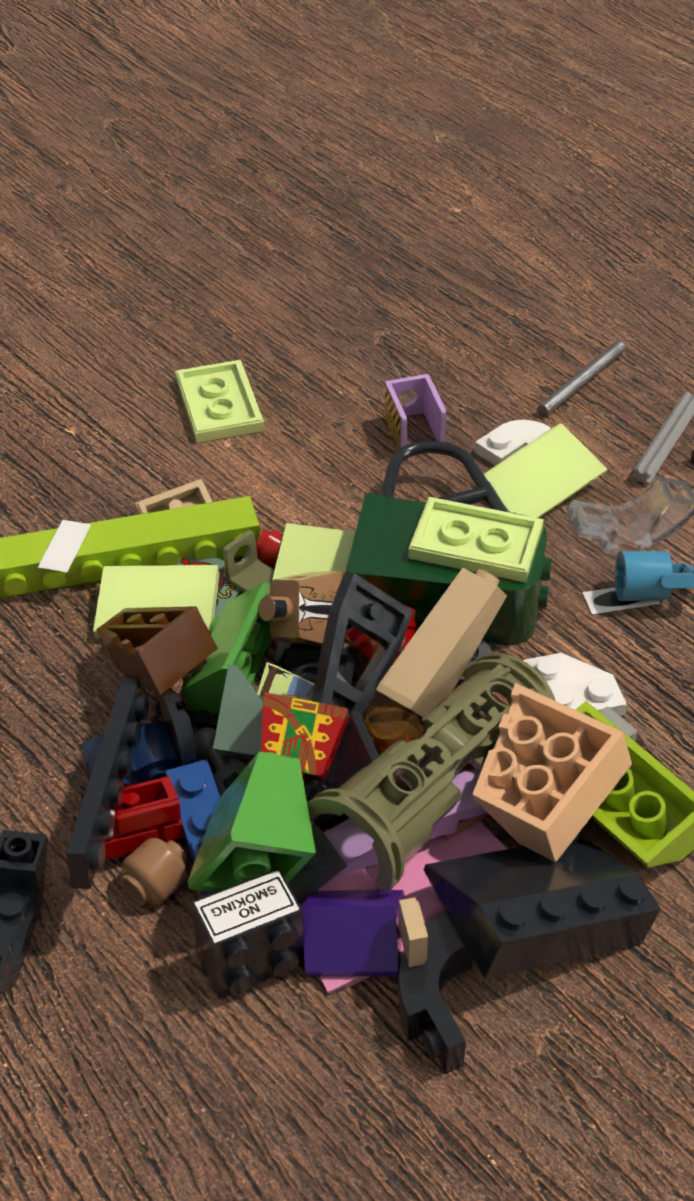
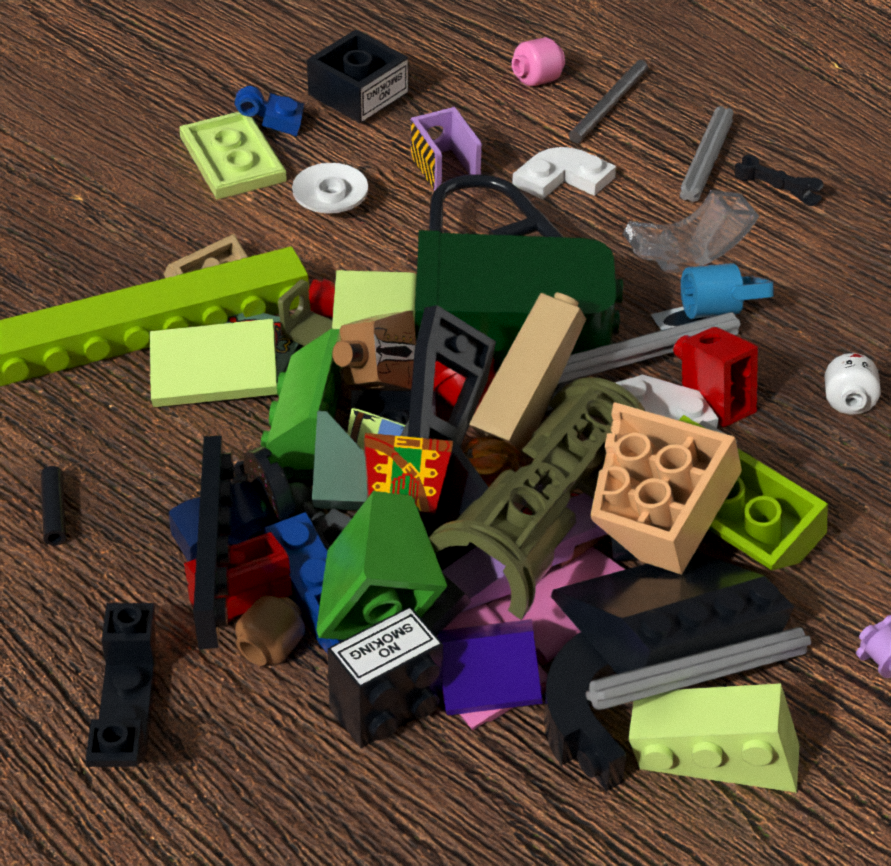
camera: 10 degrees left, 0 degrees up
(64, 546) = (105, 313): white sticker -> none
(158, 643) = (229, 401): reddish brown wedge -> none
(267, 366) = (278, 112): none -> blue plate
(300, 441) = (330, 188): none -> white dish
(346, 336) = (357, 76): none -> black brick
(413, 932) = (555, 654): tan tile -> none
(476, 538) = (543, 263): yellowish green tile -> none
(520, 335) = (538, 61): none -> bright pink head
(544, 473) = (592, 196): yellowish green piece -> none
(551, 961) = (696, 668): none -> light grey axle
(563, 1032) = (719, 735): none -> yellowish green wedge
(571, 625) = (640, 347): none -> light grey axle
(637, 659) = (722, 371): none -> red torso

